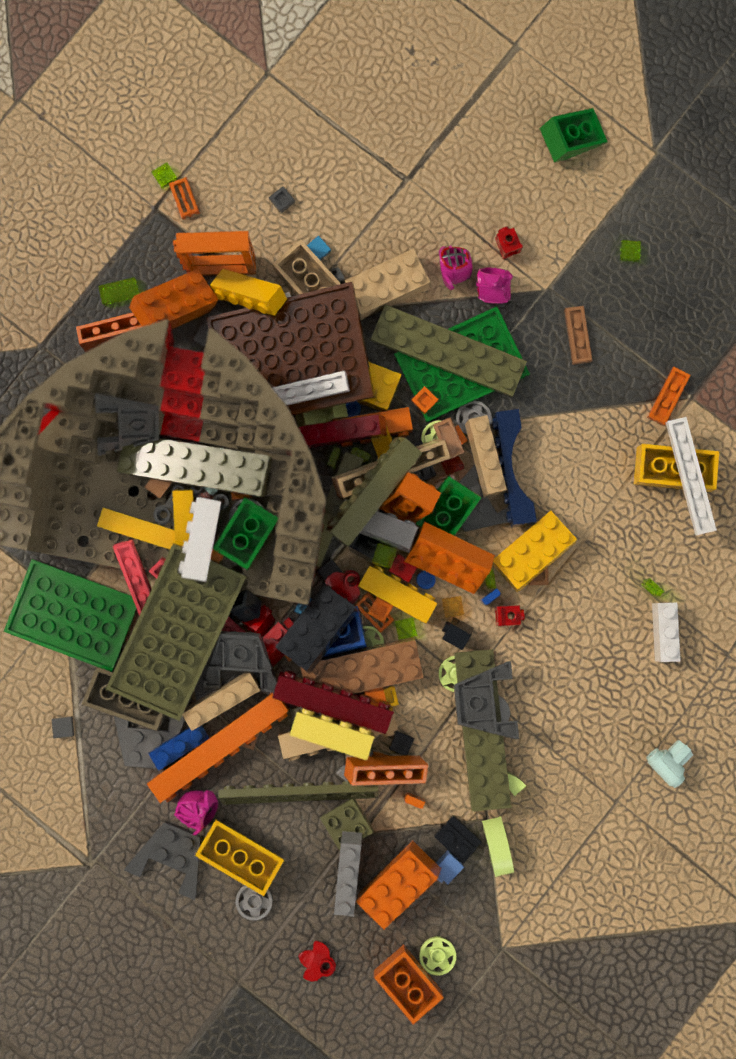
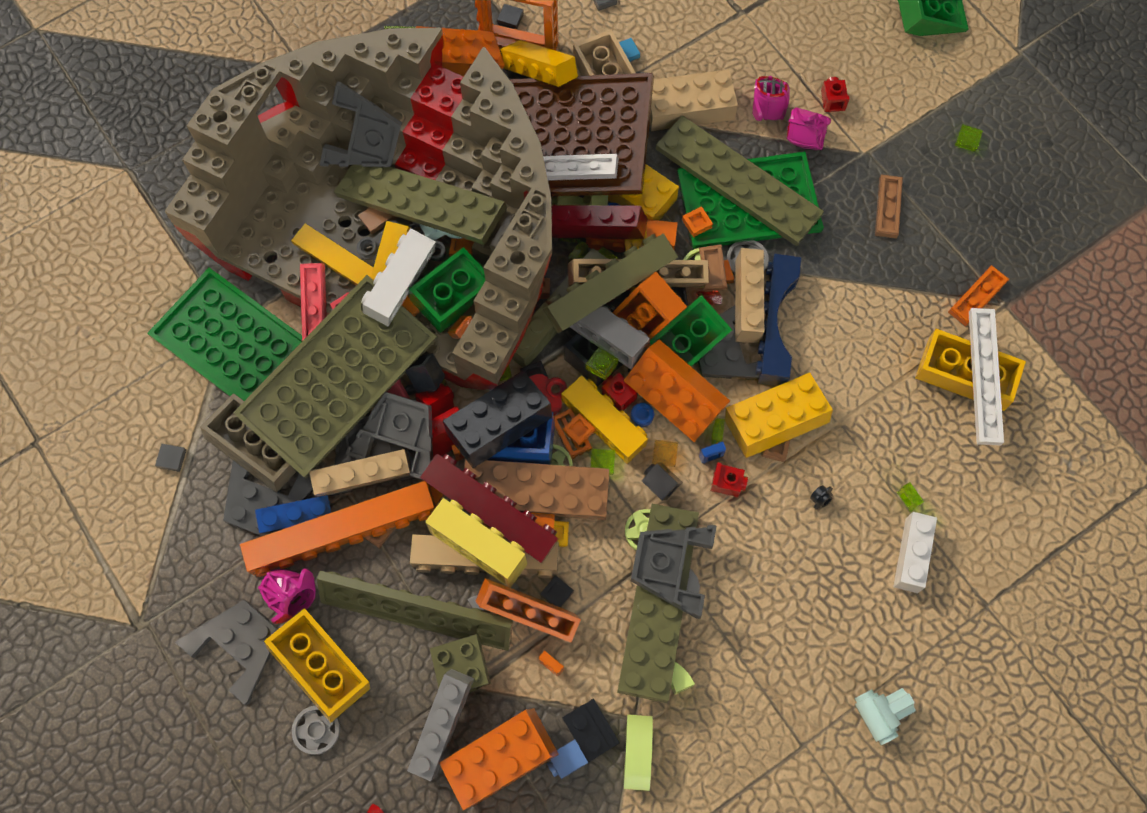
camera: 20 degrees right, 15 degrees down
(263, 562) = (459, 327): none -> orange tile
(584, 607) = (822, 496): none -> black plate

